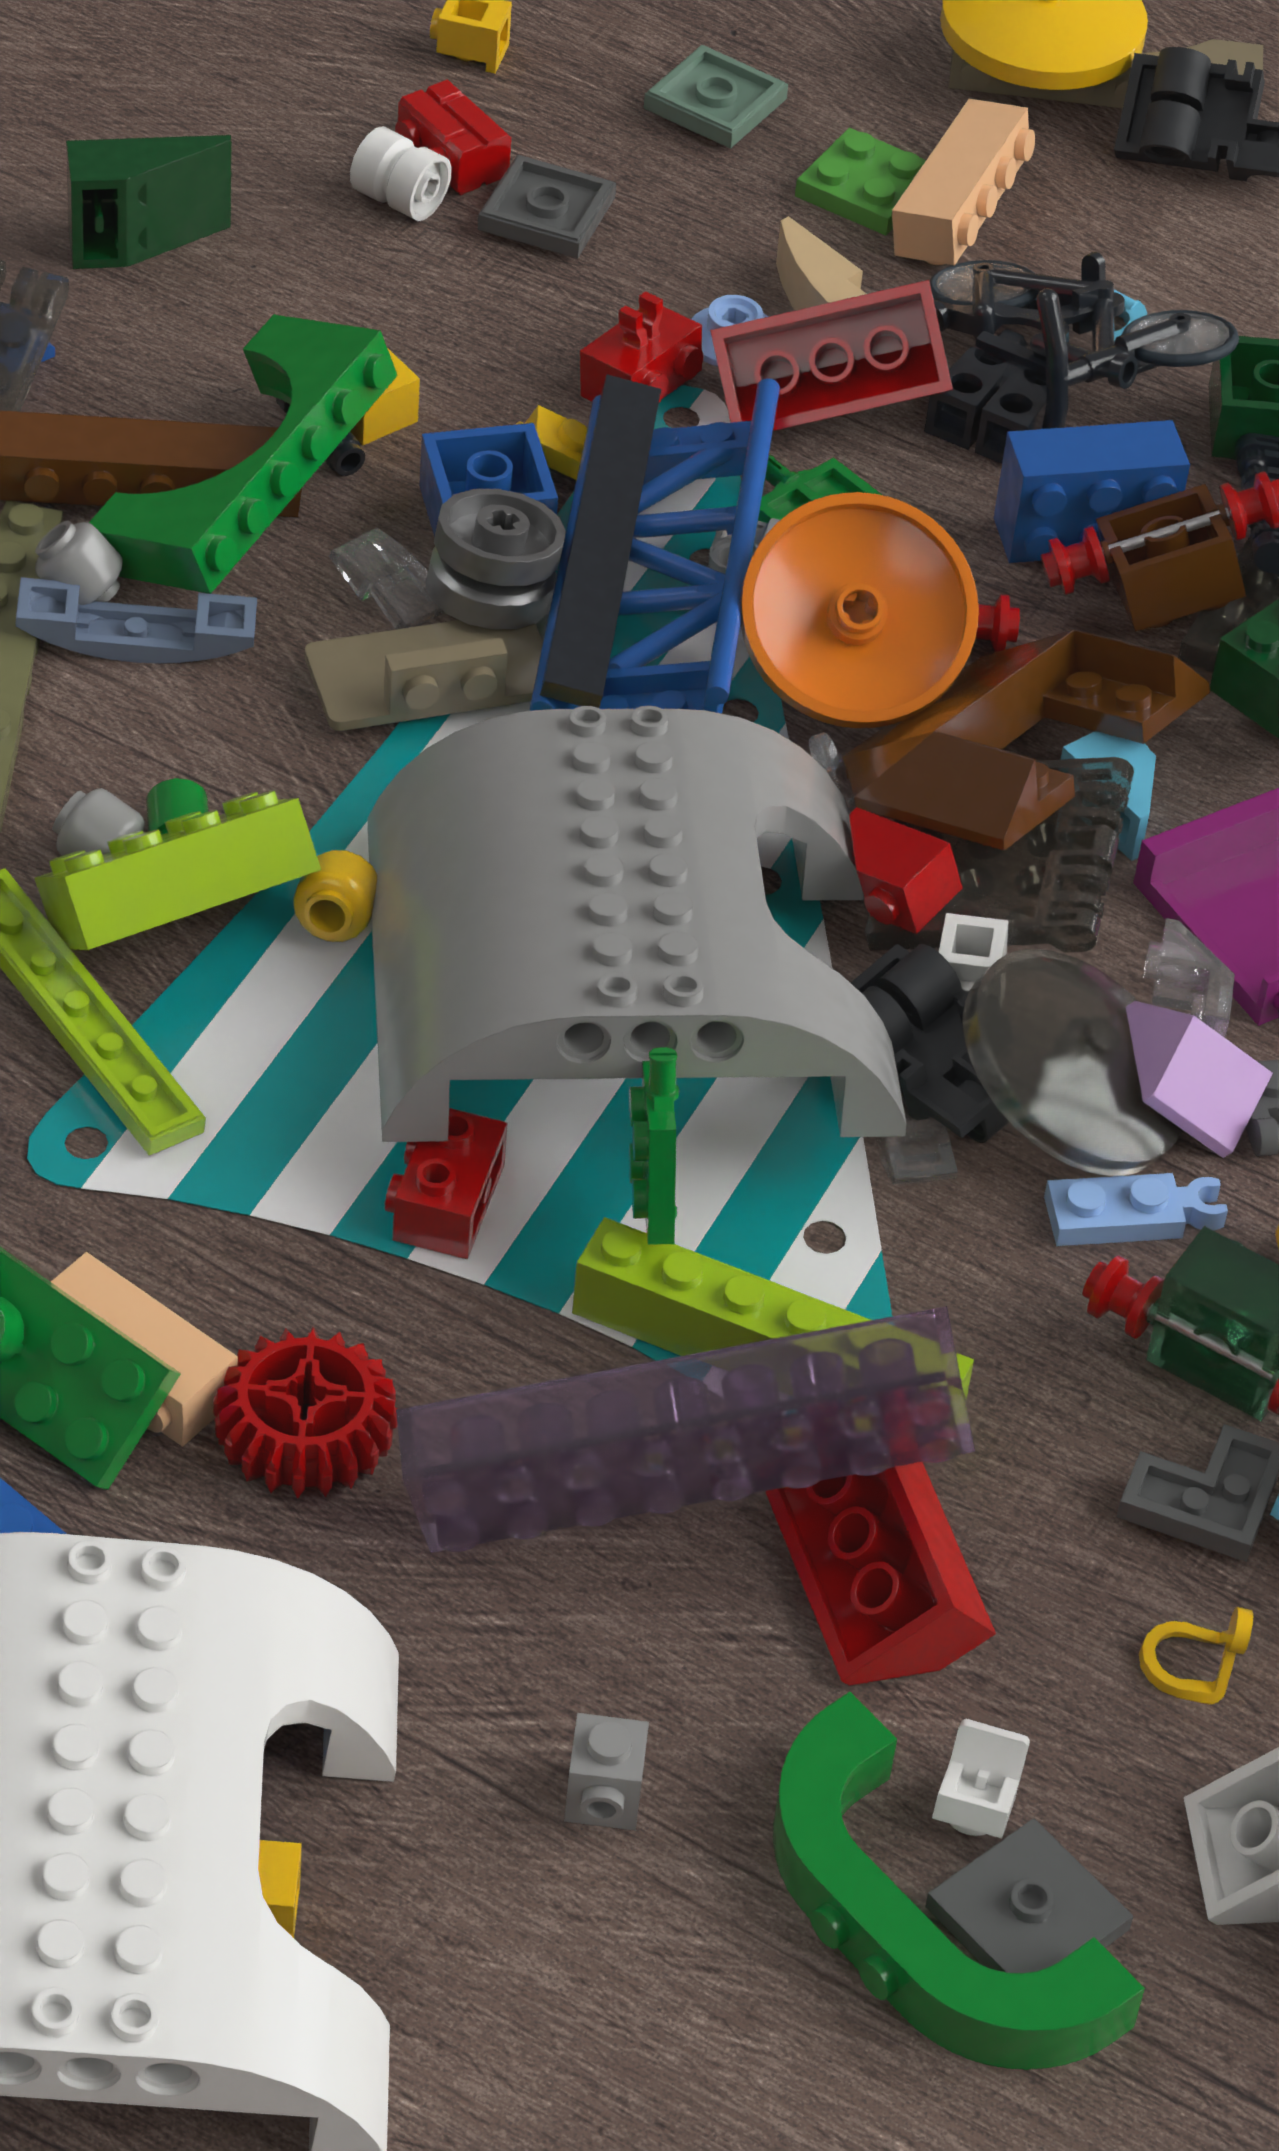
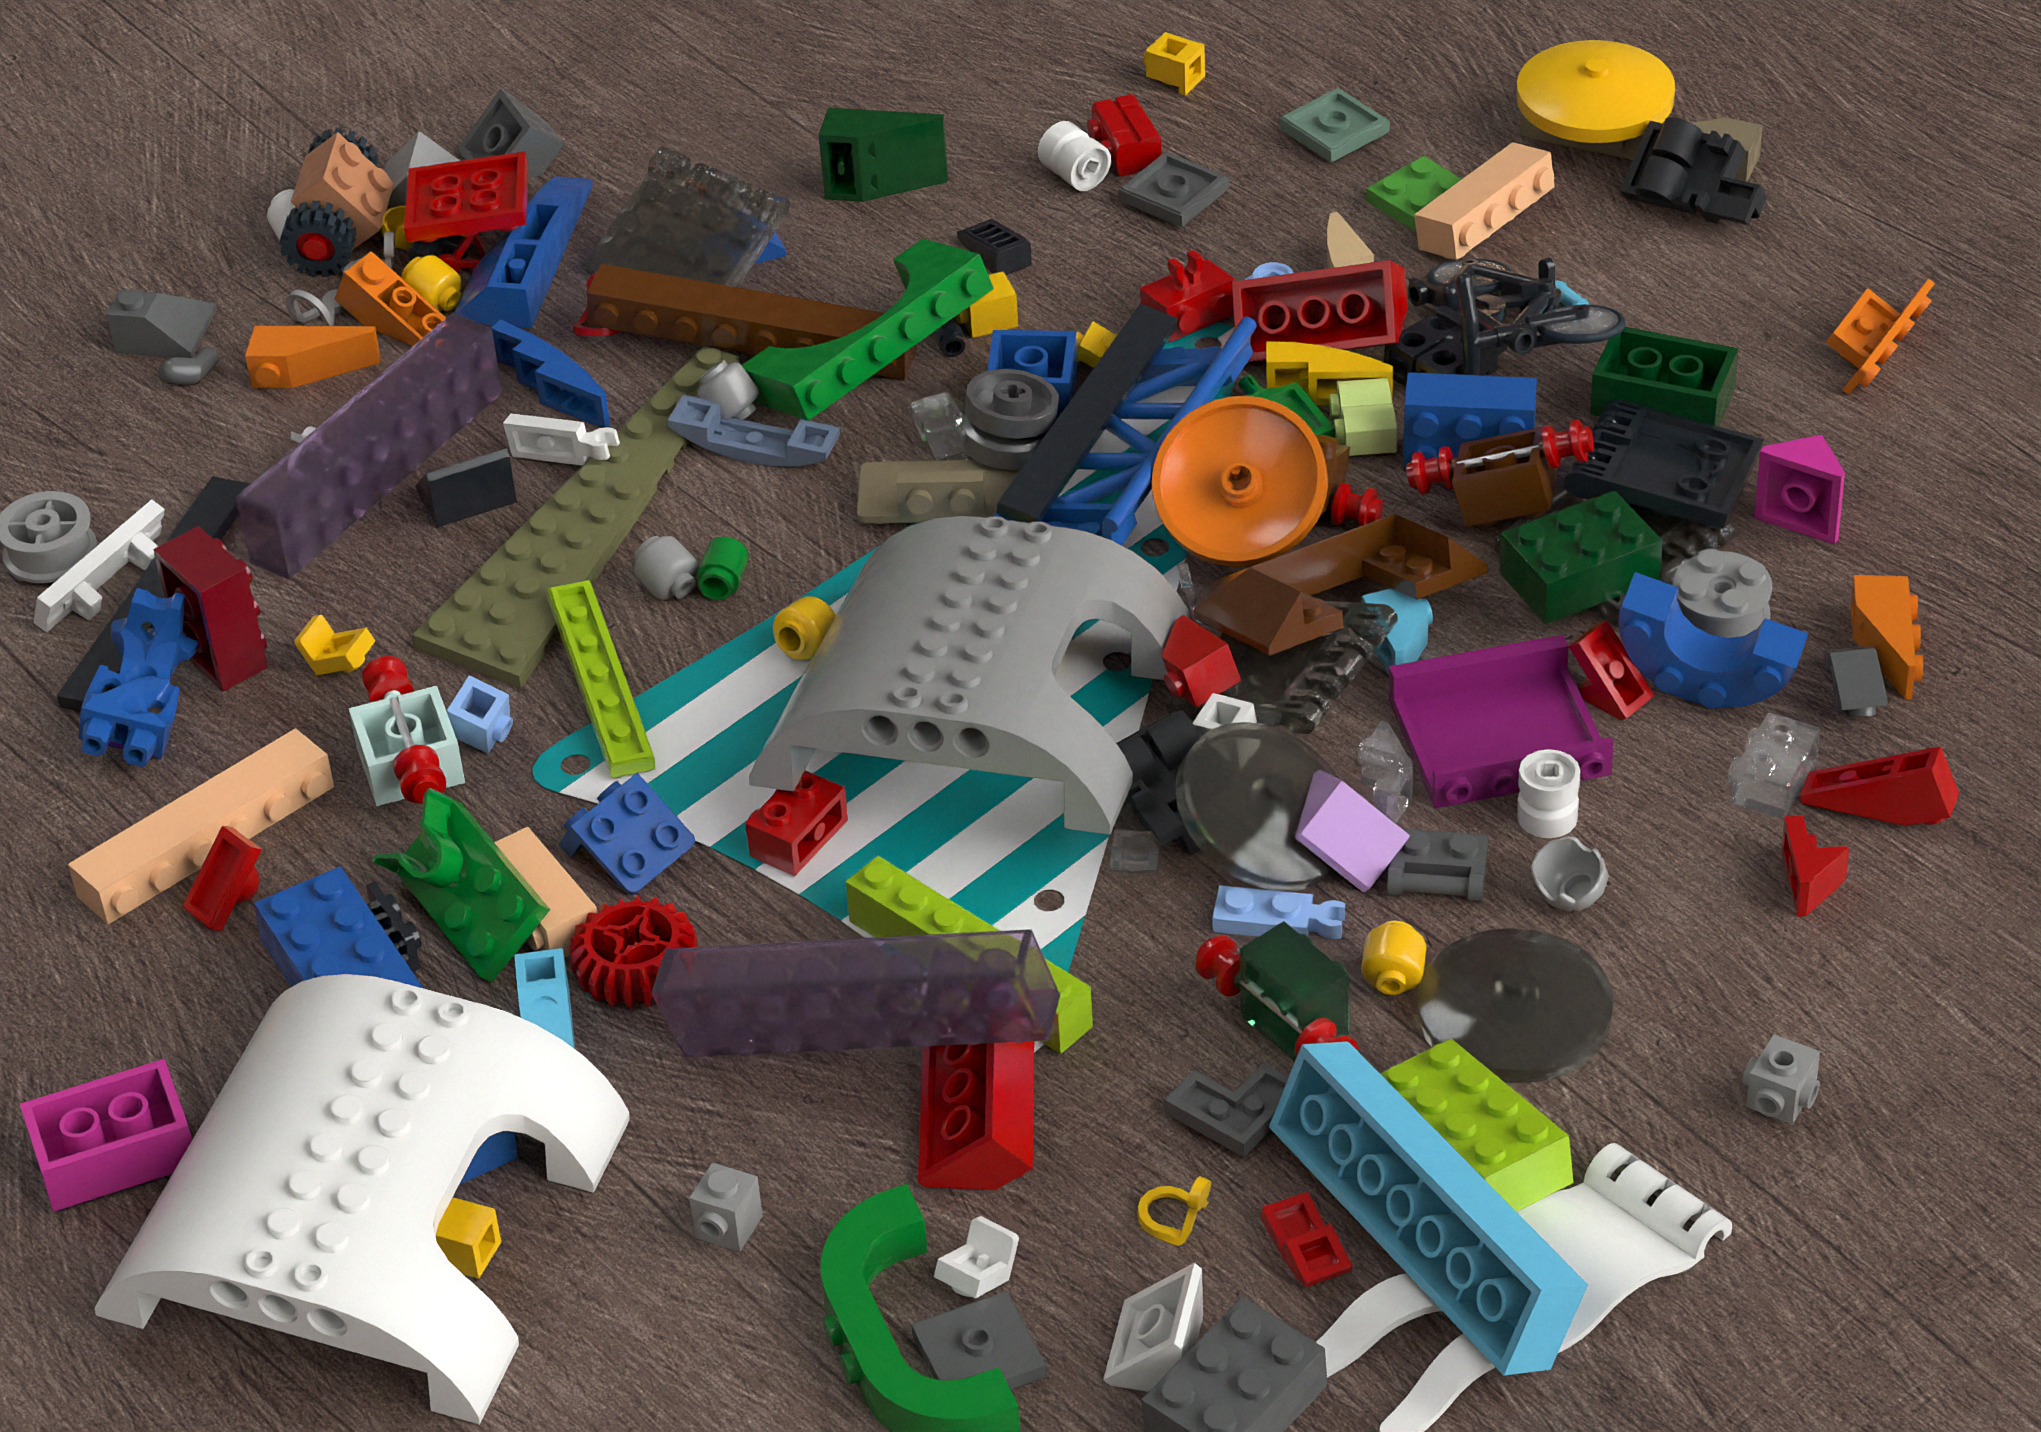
camera: 25 degrees right, 5 degrees down
(179, 873) = (693, 595): lime brick -> none
(219, 1498) = (545, 992): none -> medium azure slope
(220, 1235) = (629, 834): none -> blue bracket
(349, 305) = (998, 246): none -> black slope
(654, 1146) = (915, 812): green plate -> none
(868, 440) = (1319, 368): none -> yellow slope
(943, 486) = (1364, 416): none -> yellowish green brick

